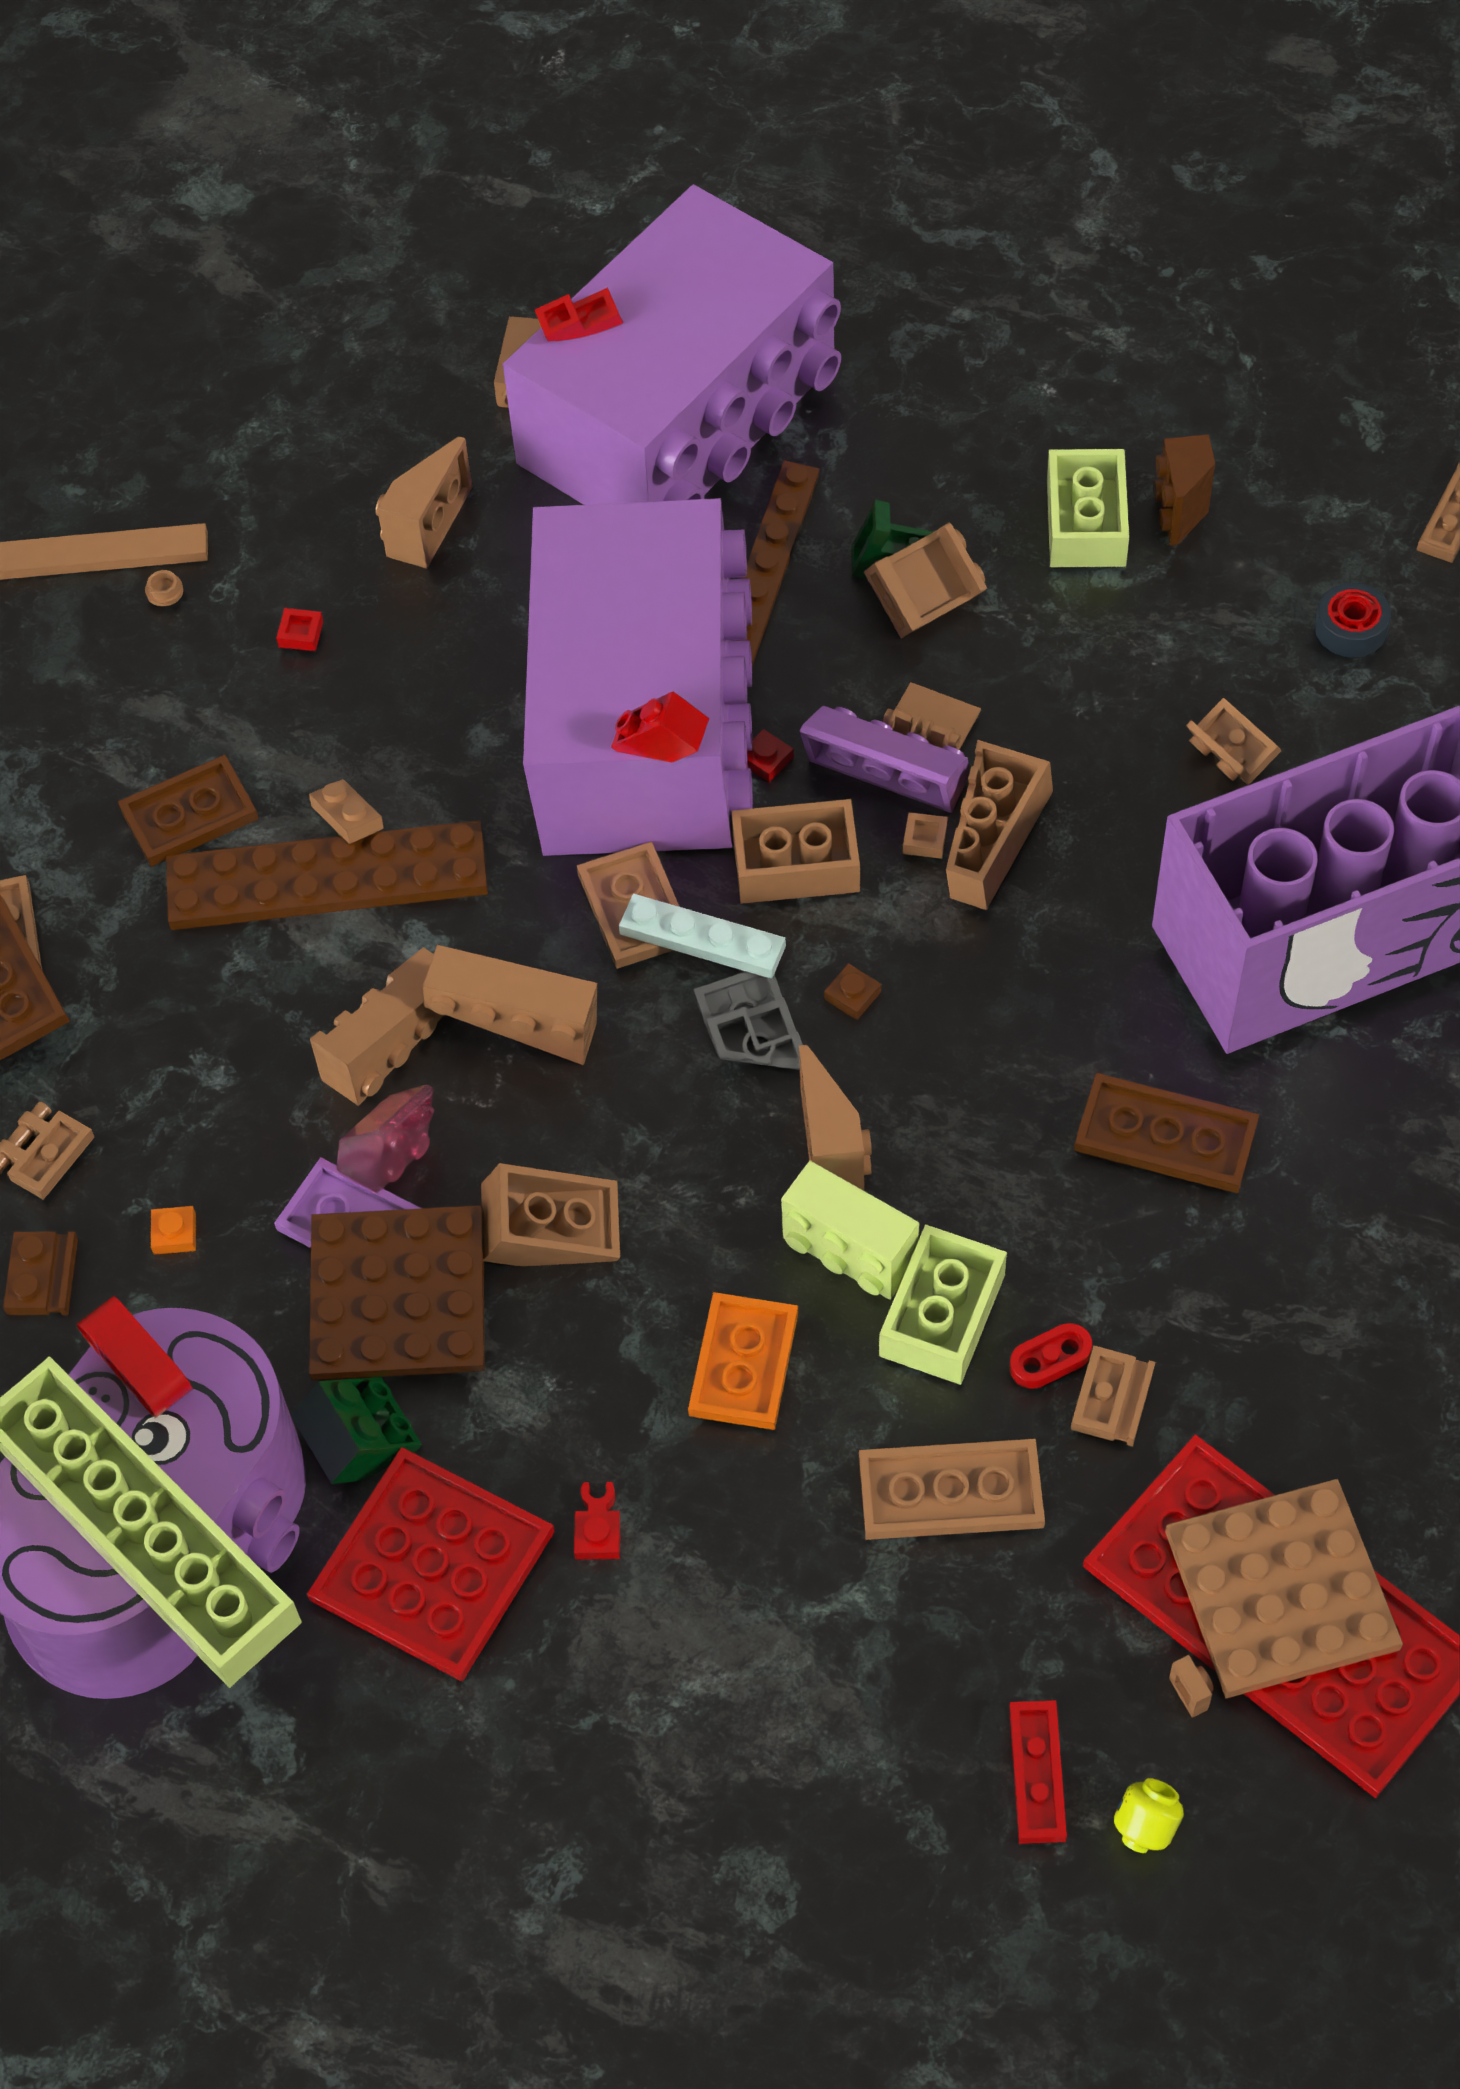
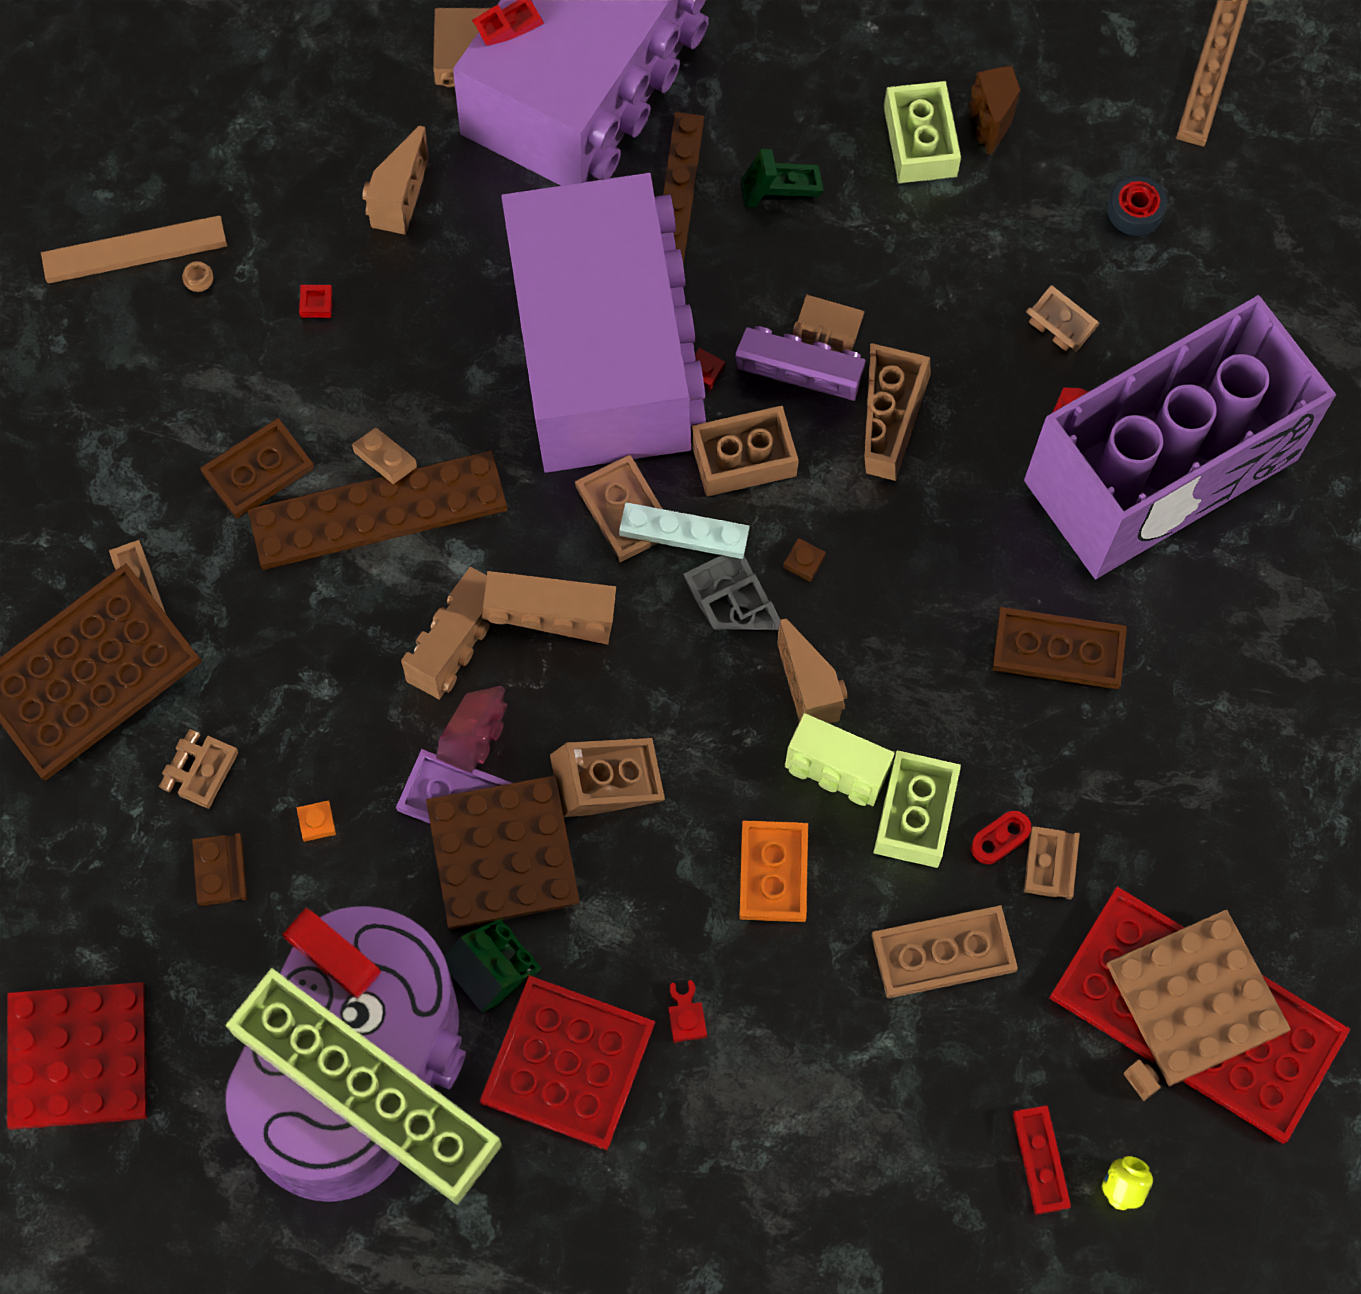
camera: 15 degrees left, 10 degrees up
(661, 729) = (641, 382): red slope -> none
(925, 835) = (839, 424): medium nougat plate -> none
(926, 579) = (806, 207): medium nougat panel -> none

